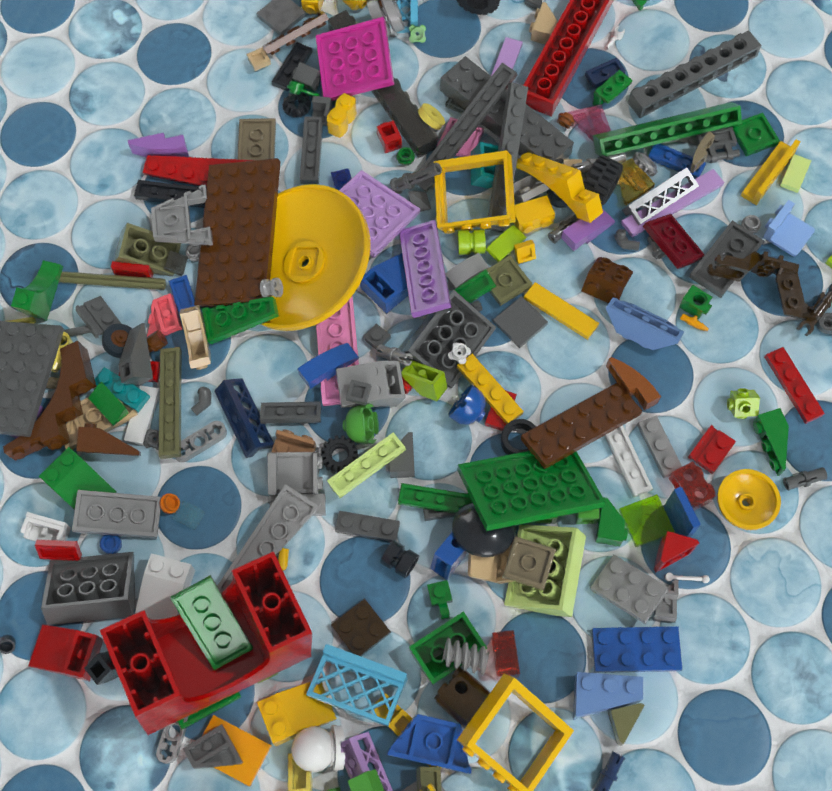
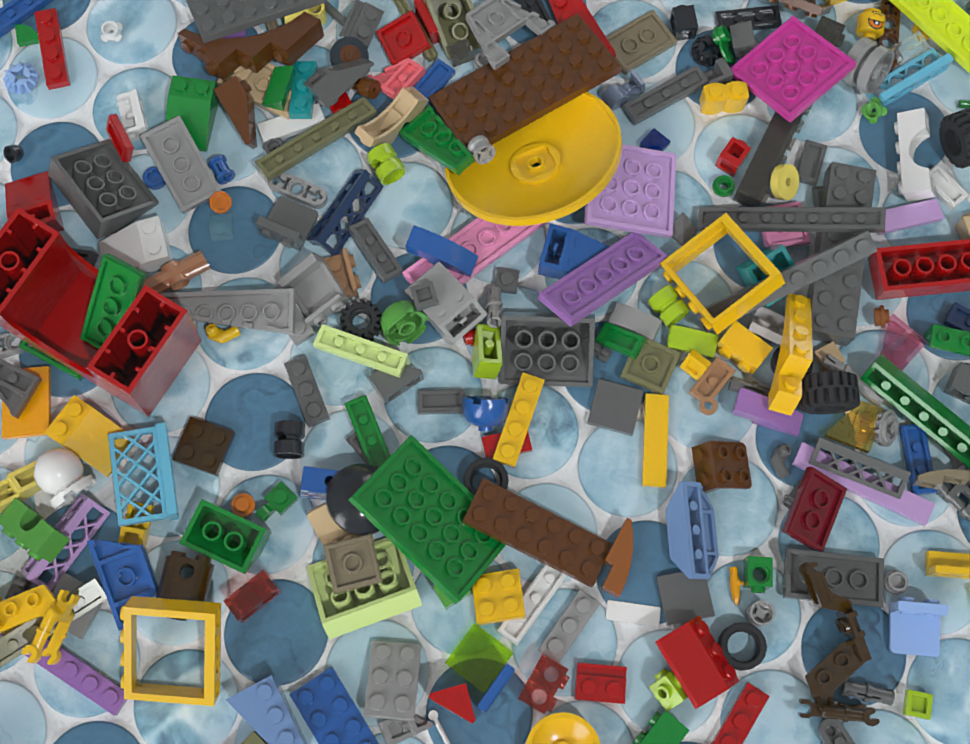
camera: 55 degrees right, 5 degrees up
(134, 294) = (403, 38): none -> red tile
(136, 484) = (221, 169): none -> blue bush
(204, 400) = (339, 167): dark grey arm -> none
(207, 560) = (177, 274): none -> nougat piece
(223, 462) = (288, 223): none -> dark grey bracket
(228, 364) = (385, 162): none -> lime wheel
(265, 105) = (684, 22): none -> black brick
(289, 165) = (617, 96): none -> sand blue leg
(409, 180) = (694, 205): dark grey pin -> none
(426, 93) = (811, 162): none -> dark grey tile
(427, 623) = (243, 505): none -> orange plate
(439, 436) = (440, 401): none -> dark grey tile
(463, 349) = (536, 360): white plate -> none
(465, 656) = (217, 557): light grey piece -> none
(486, 39) = (912, 130): none -> white arch
(500, 29) = (947, 189): none -> white tile
(545, 252) = (711, 384): none -> medium nougat hinge
(610, 526) = (448, 623): green slope -> none
(613, 478) = (499, 597): none -> yellow plate
(674, 399) = (633, 613): none -> white sticker
(684, 360) = (684, 598): none -> dark grey tile
(724, 317) = (764, 611): none -> light grey wheel
(736, 373) = (697, 661): none -> red slope
(749, 333) = (761, 646): none -> black tyre
(815, 285) = (868, 692): none -> dark grey pin

